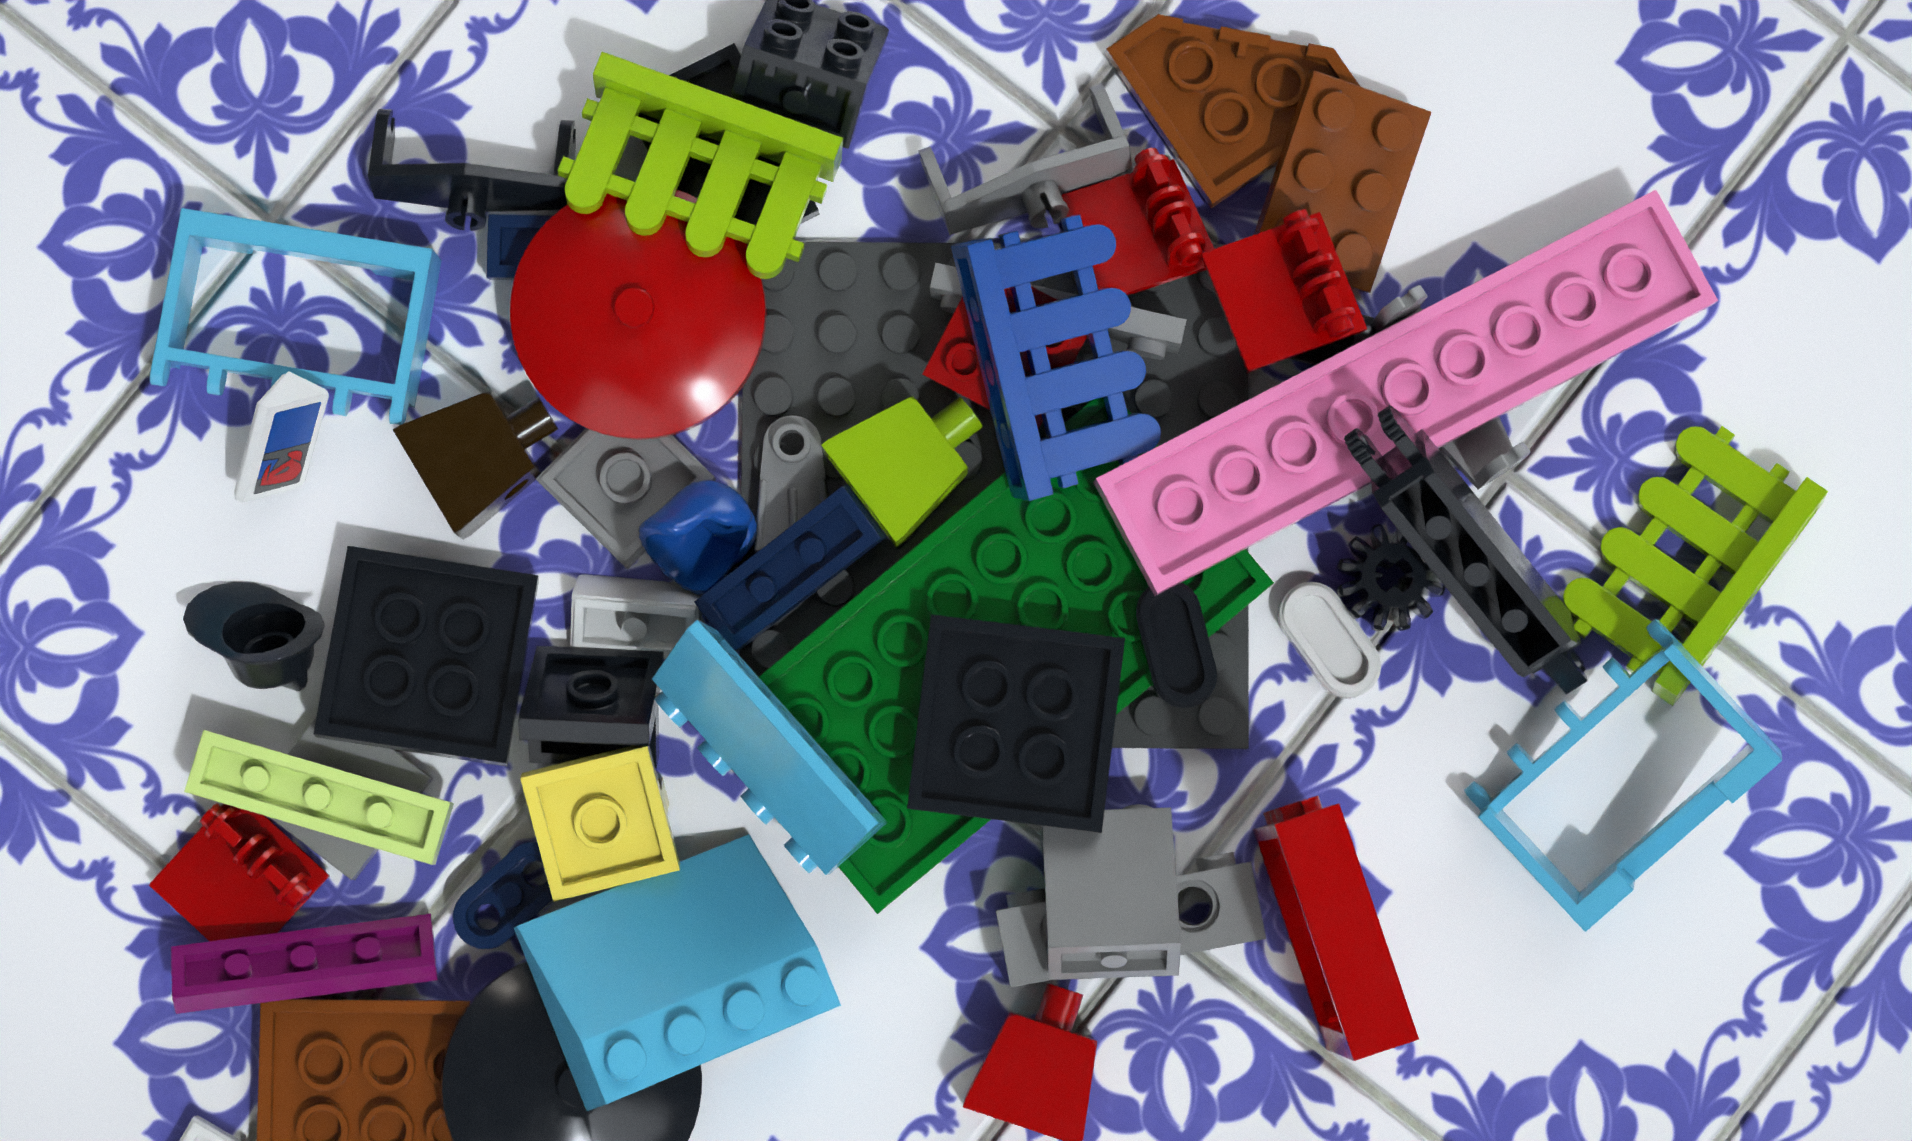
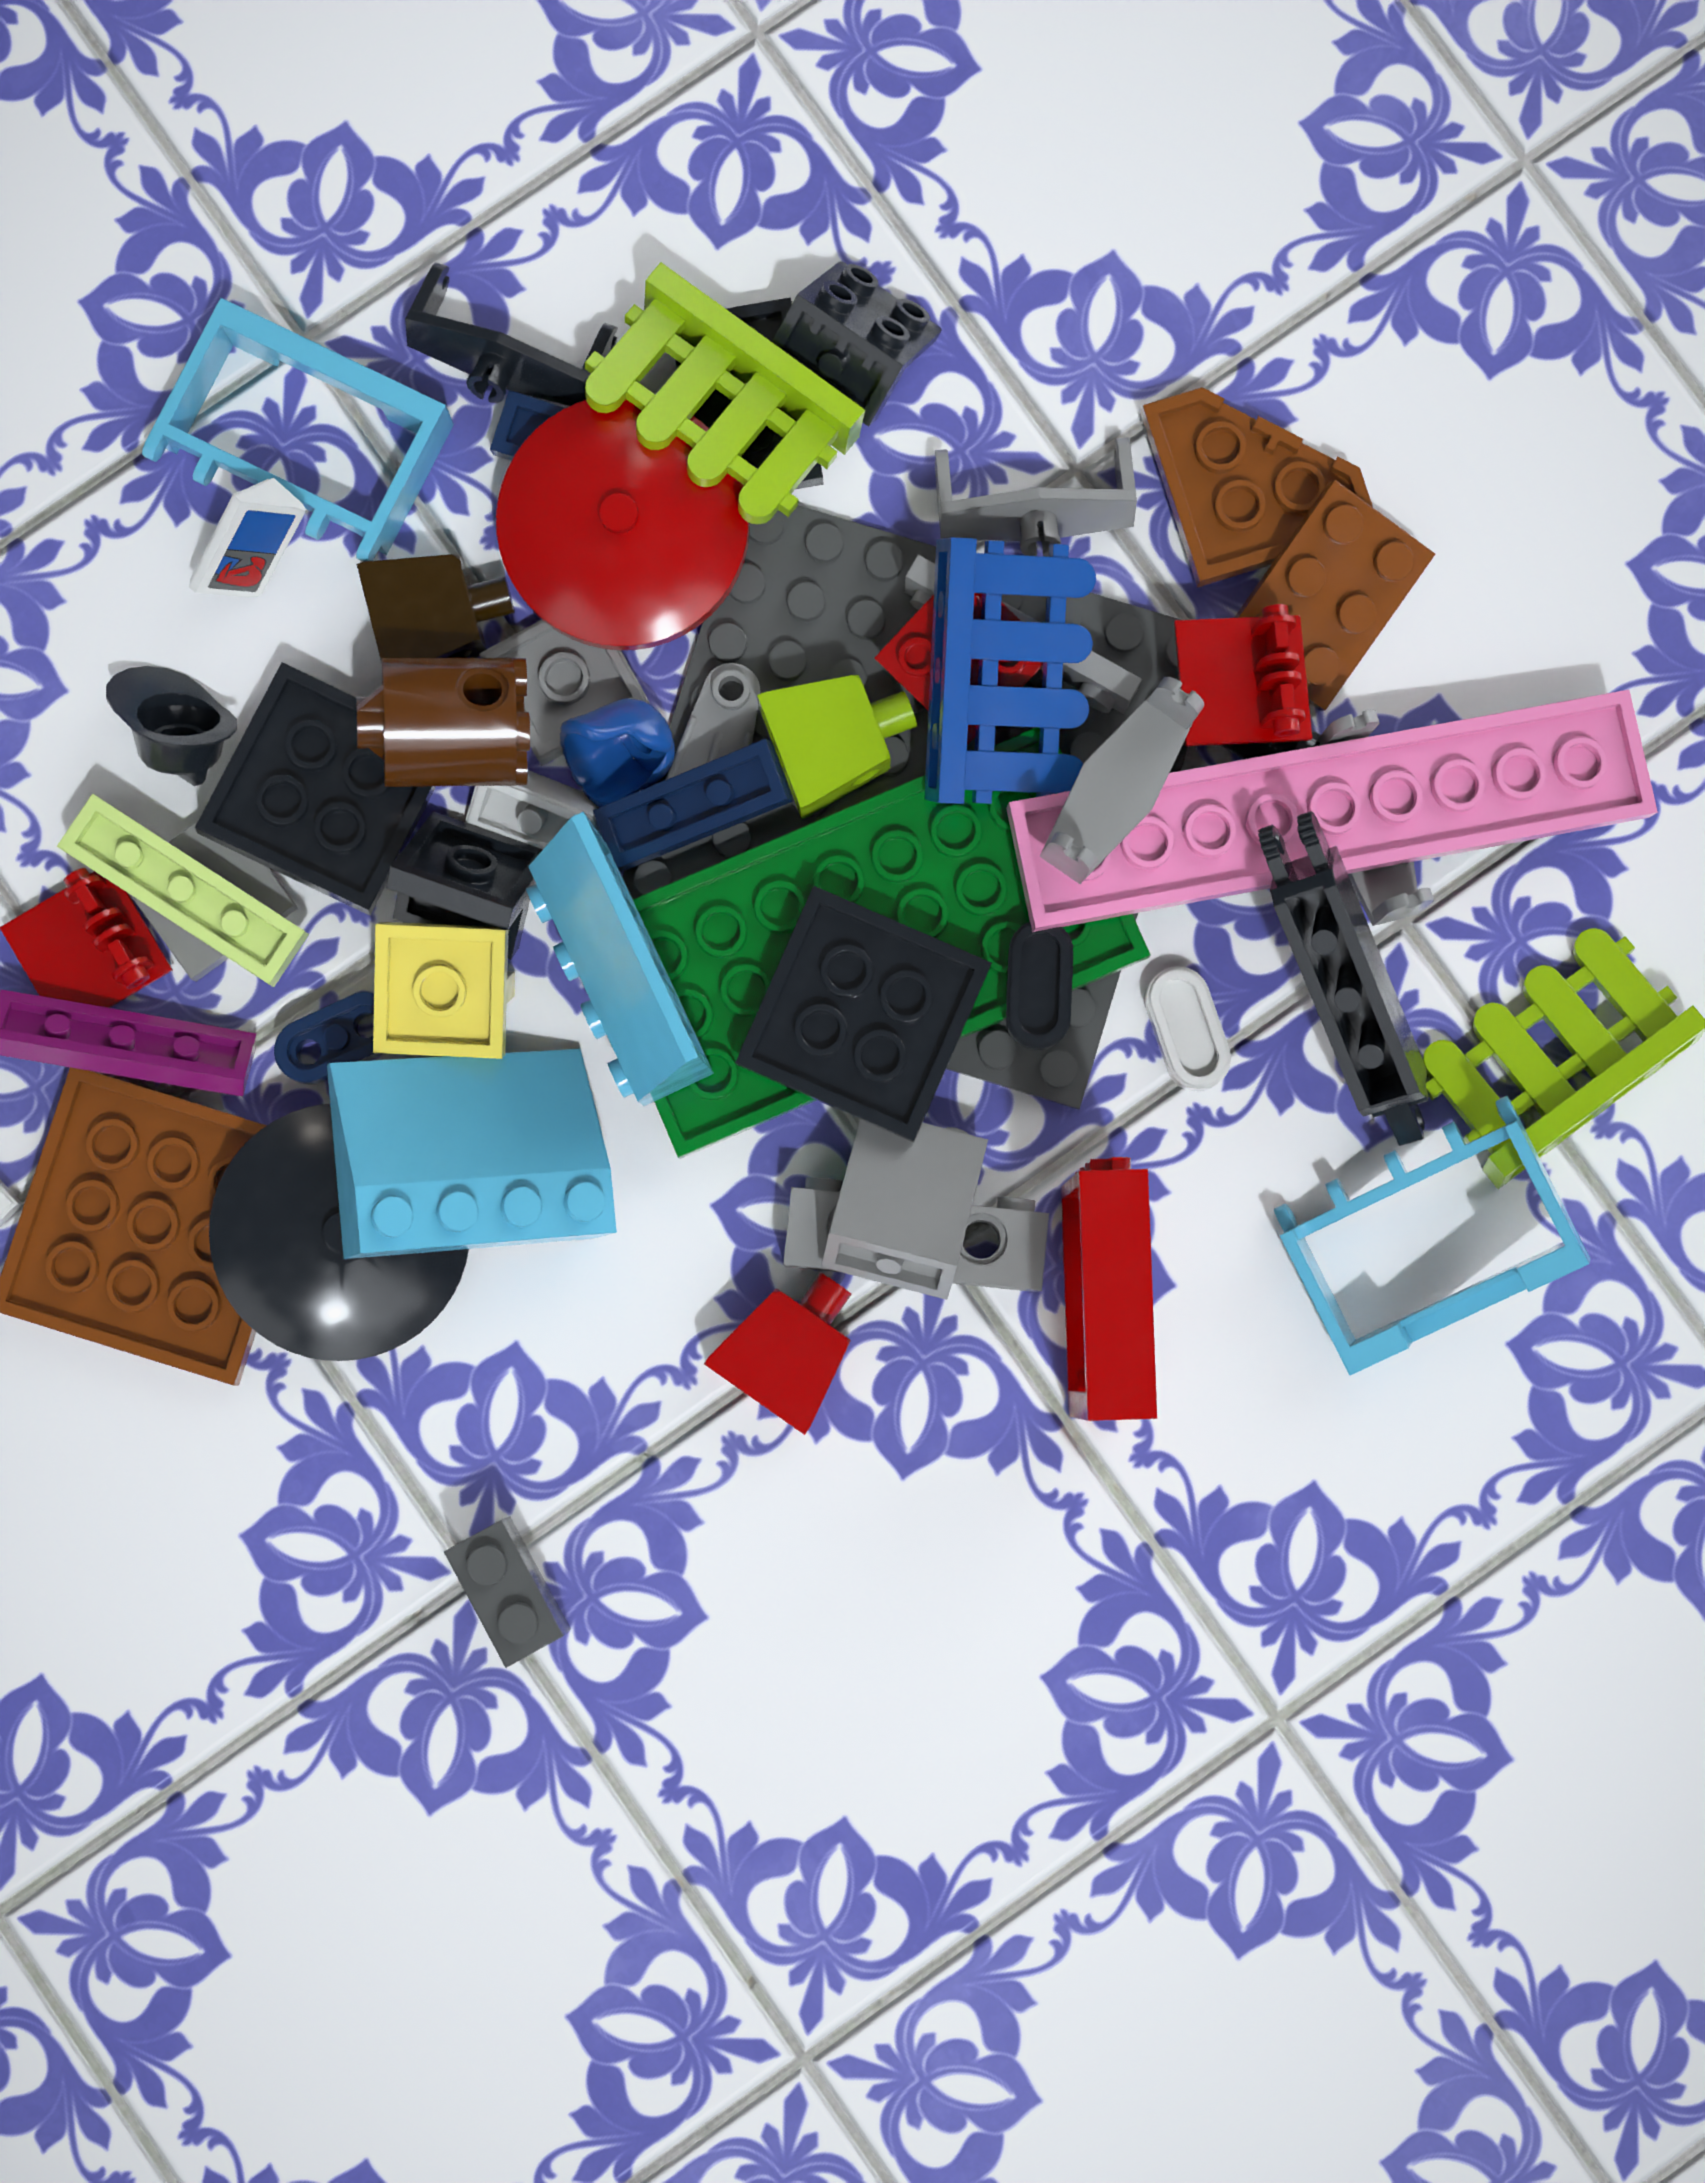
camera: 15 degrees right, 0 degrees up
(531, 560) = (448, 722): none -> reddish brown cylinder
(1152, 223) = (1136, 582): red hinge -> none
(1198, 430) = (1121, 781): none -> light grey piece
(1394, 599) = (1260, 1007): black gear -> none

